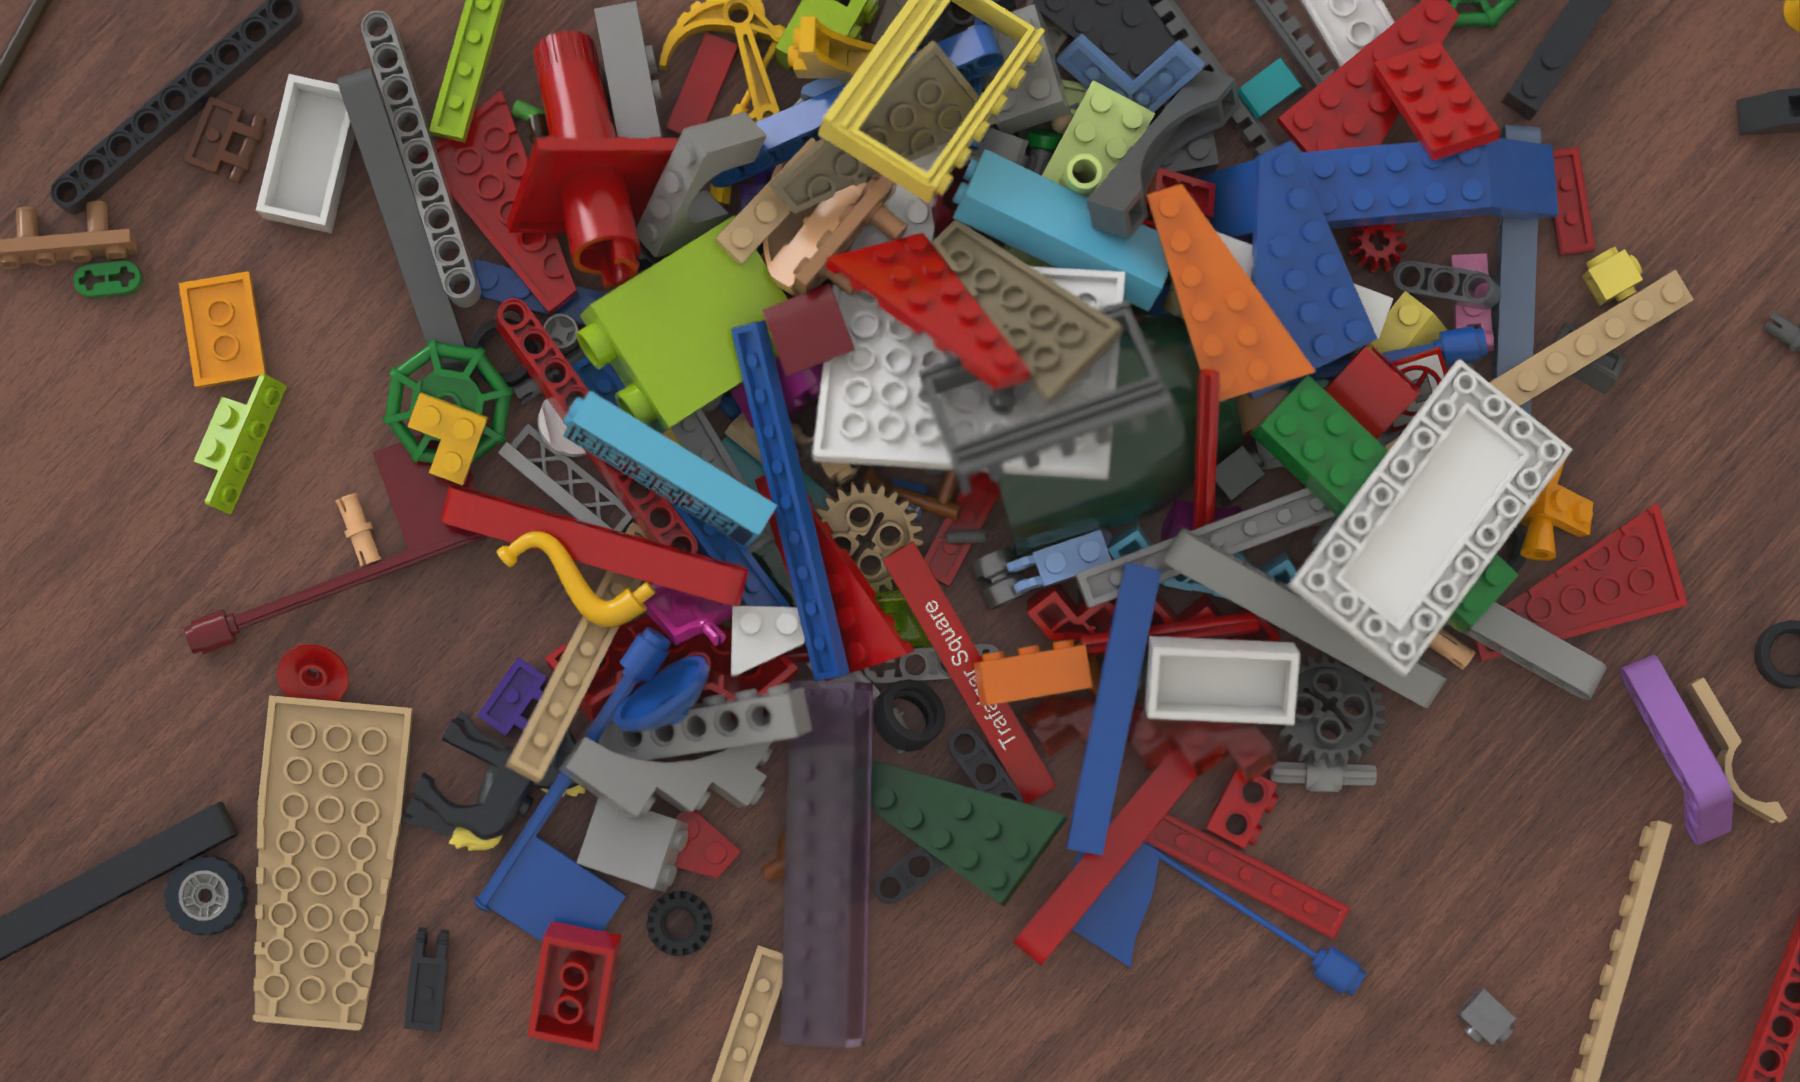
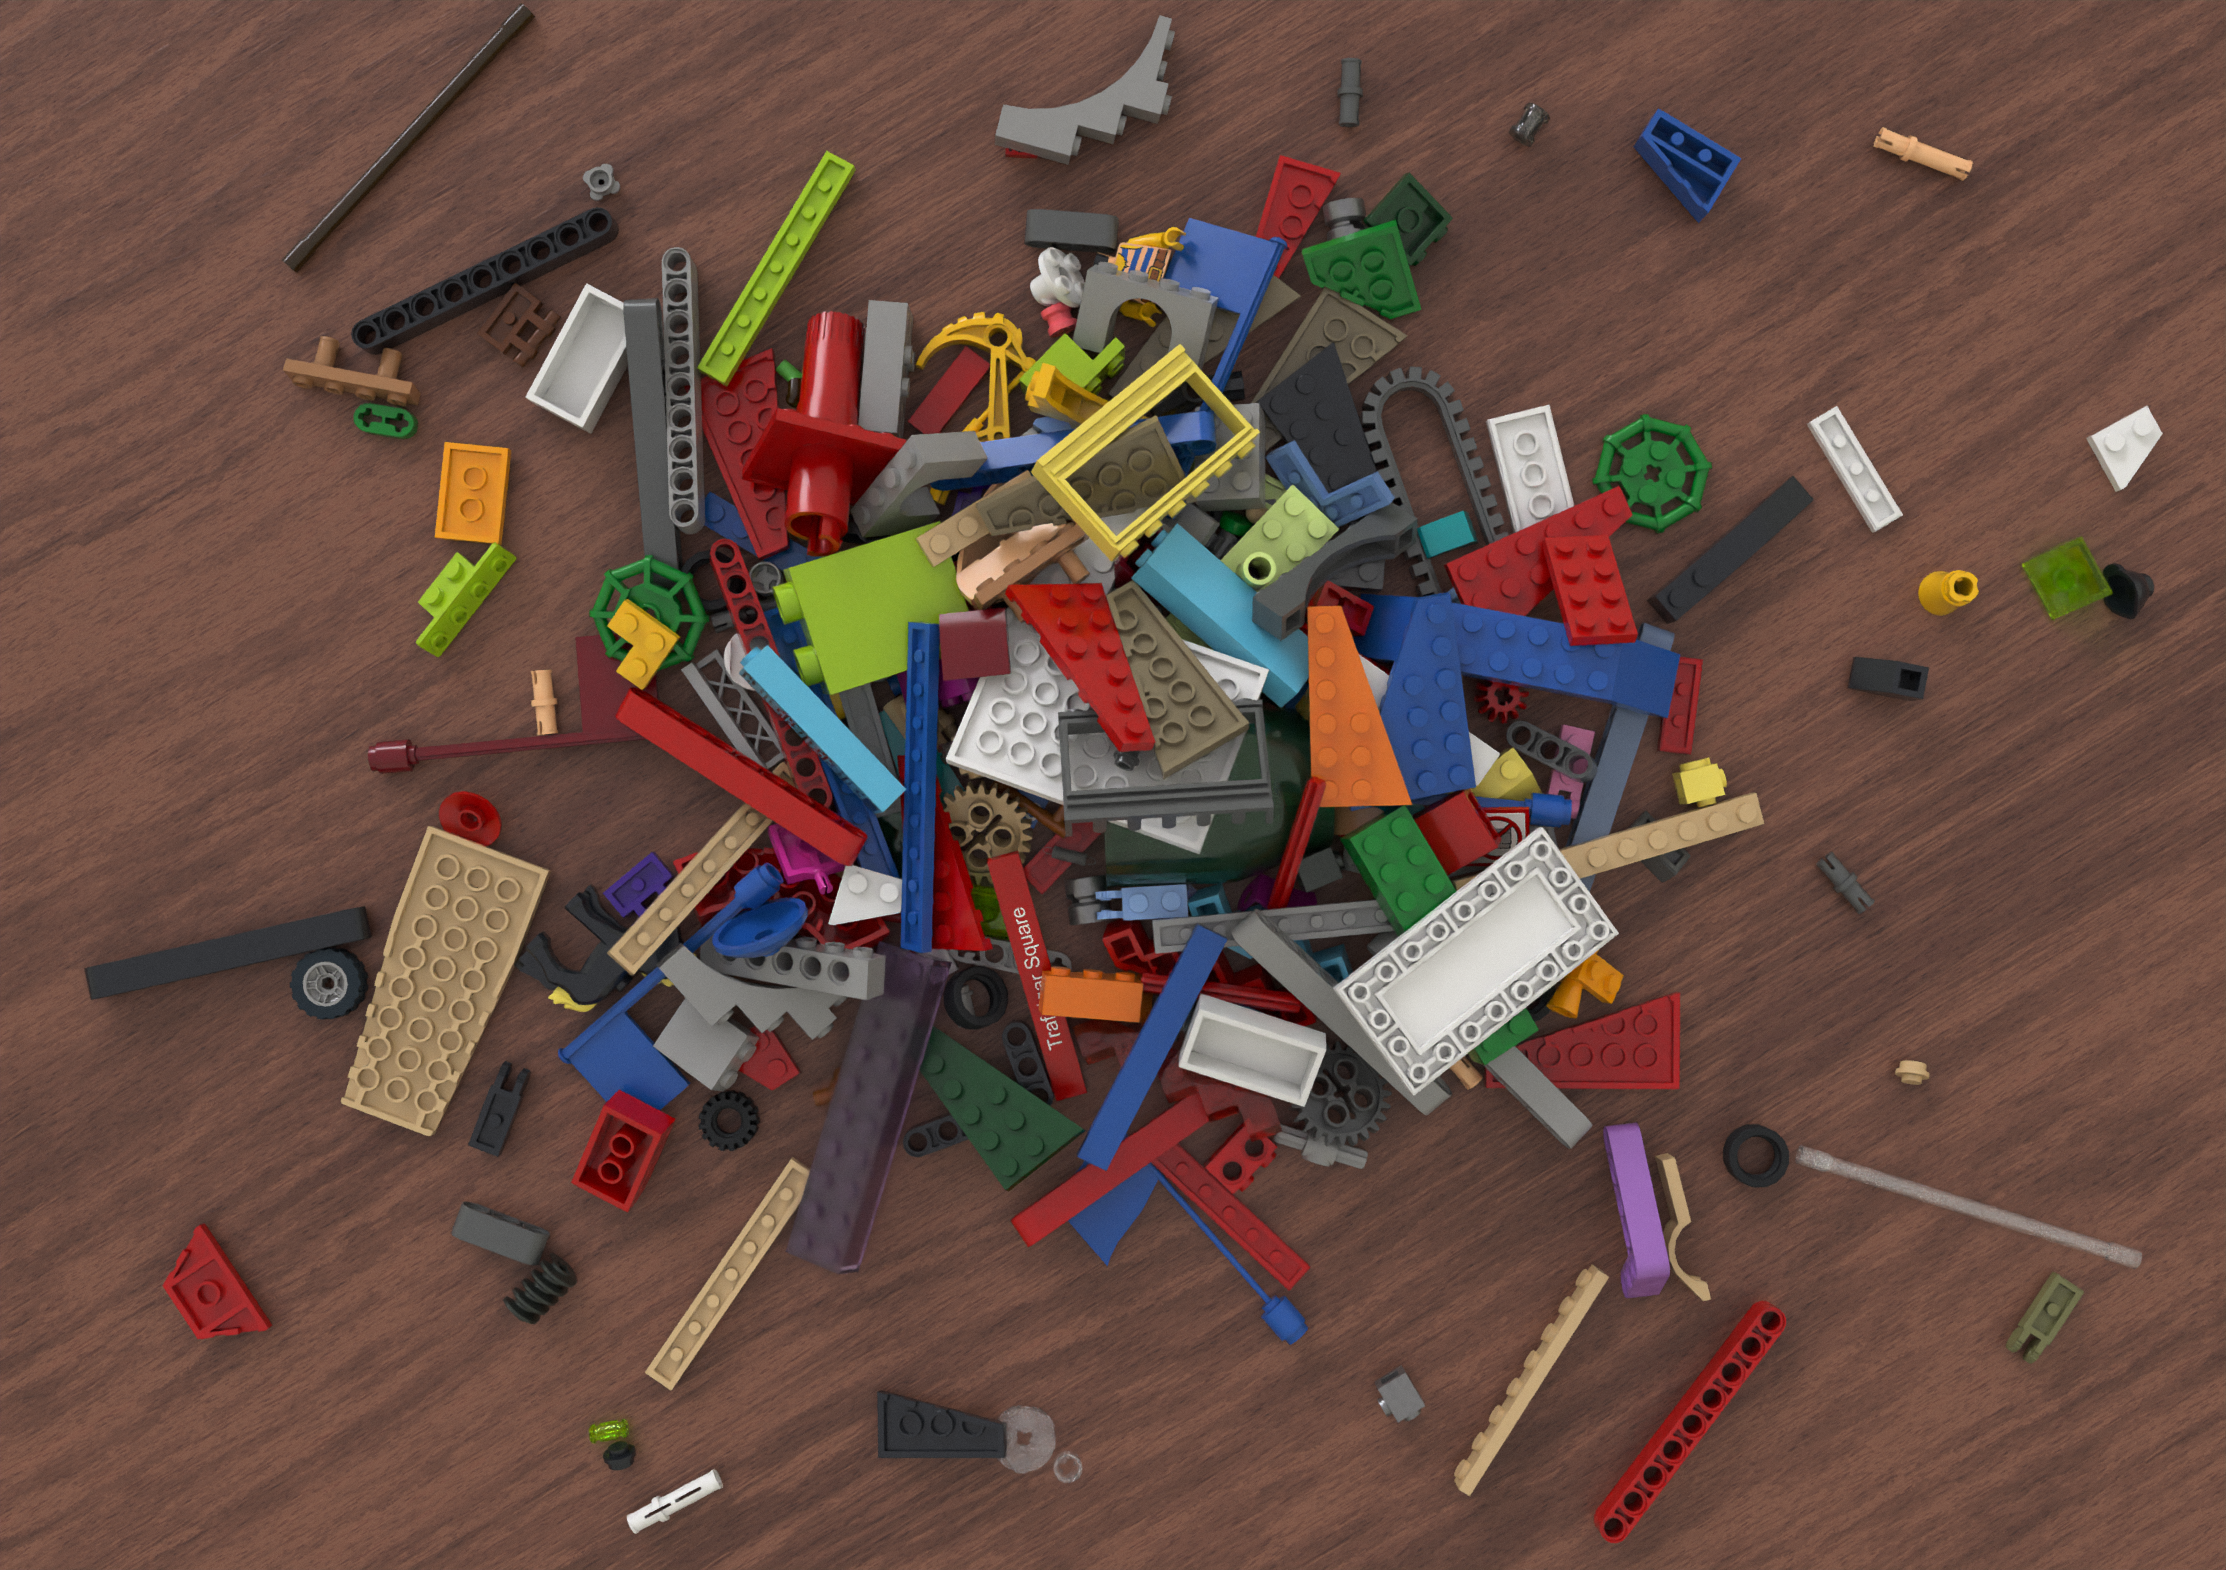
camera: 15 degrees right, 5 degrees up
(598, 611) = (738, 841): yellow animal -> none

